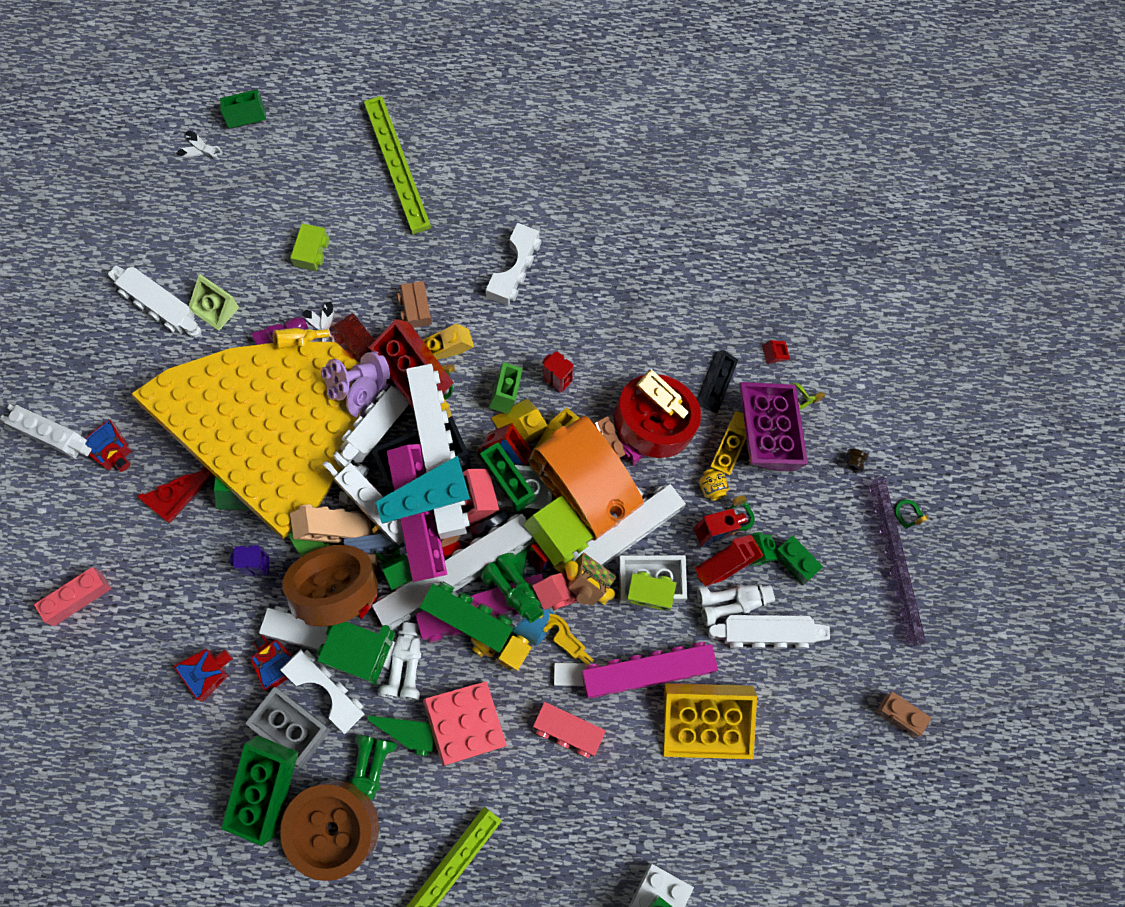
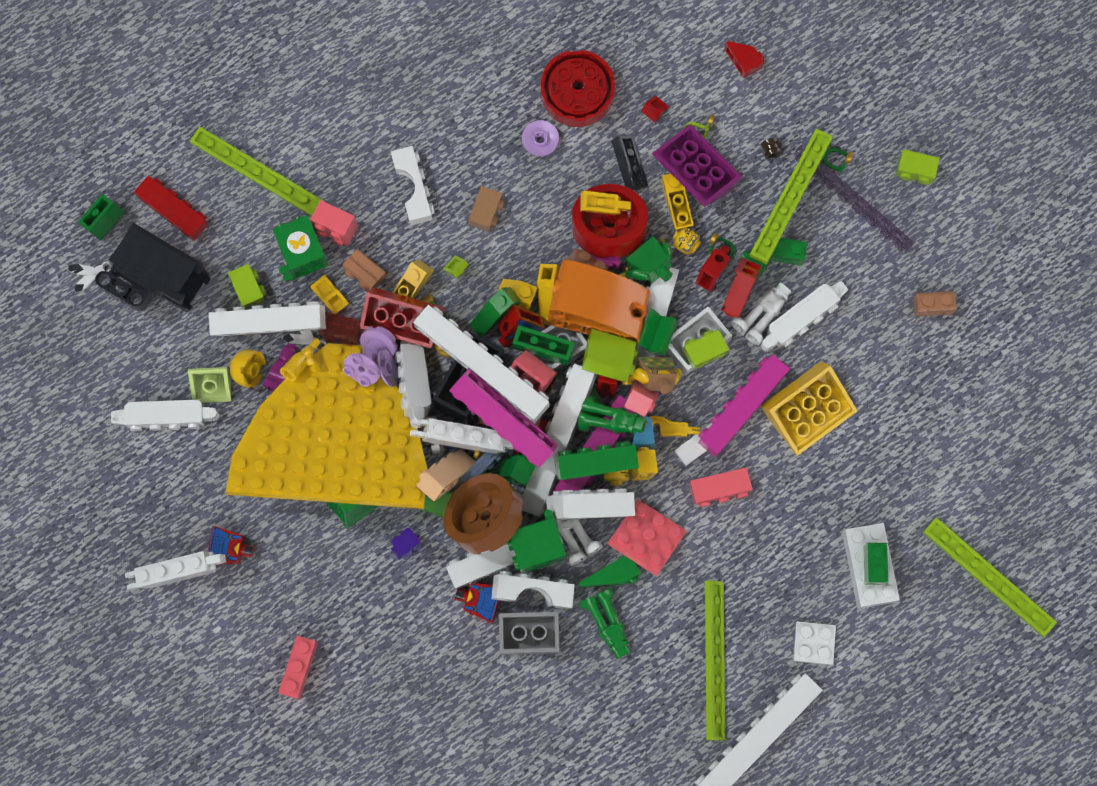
camera: 35 degrees left, 5 degrees up
(173, 497) = (307, 545): red wing -> none
(204, 672) = (437, 644): torso -> none
(240, 175) = (152, 270): none -> black piece
(251, 309) = (246, 367): none -> yellow cylinder
(259, 790) = (547, 687): green brick -> none
(300, 284) = (267, 320): none -> white brick
(304, 142) = (171, 208): none -> red brick
(311, 845) = (619, 696): dark orange brick -> none
(371, 303) = (329, 295): none -> yellow slope
(375, 246) = (299, 248): none -> green container
(420, 246) = (334, 223): none -> coral brick
(431, 491) = (505, 395): teal wing -> none
(436, 655) = (591, 503): none -> white brick
(494, 358) = (455, 266): none -> lime plate
(495, 416) = (494, 311): none -> green slope
(506, 388) = (483, 280): bright green brick -> none
(557, 371) = (512, 242): red brick -> none
(559, 329) = (486, 208): none -> medium nougat brick
(619, 544) = (657, 333): none -> green panel
(654, 295) = (537, 130): none -> lavender dish
(664, 477) = (650, 262): none -> green torso
(709, 301) = (575, 106): none -> red brick
(839, 514) = (791, 196): none -> lime plate
(891, 365) = (744, 58): none -> red slope
(981, 576) = (917, 167): none -> lime brick

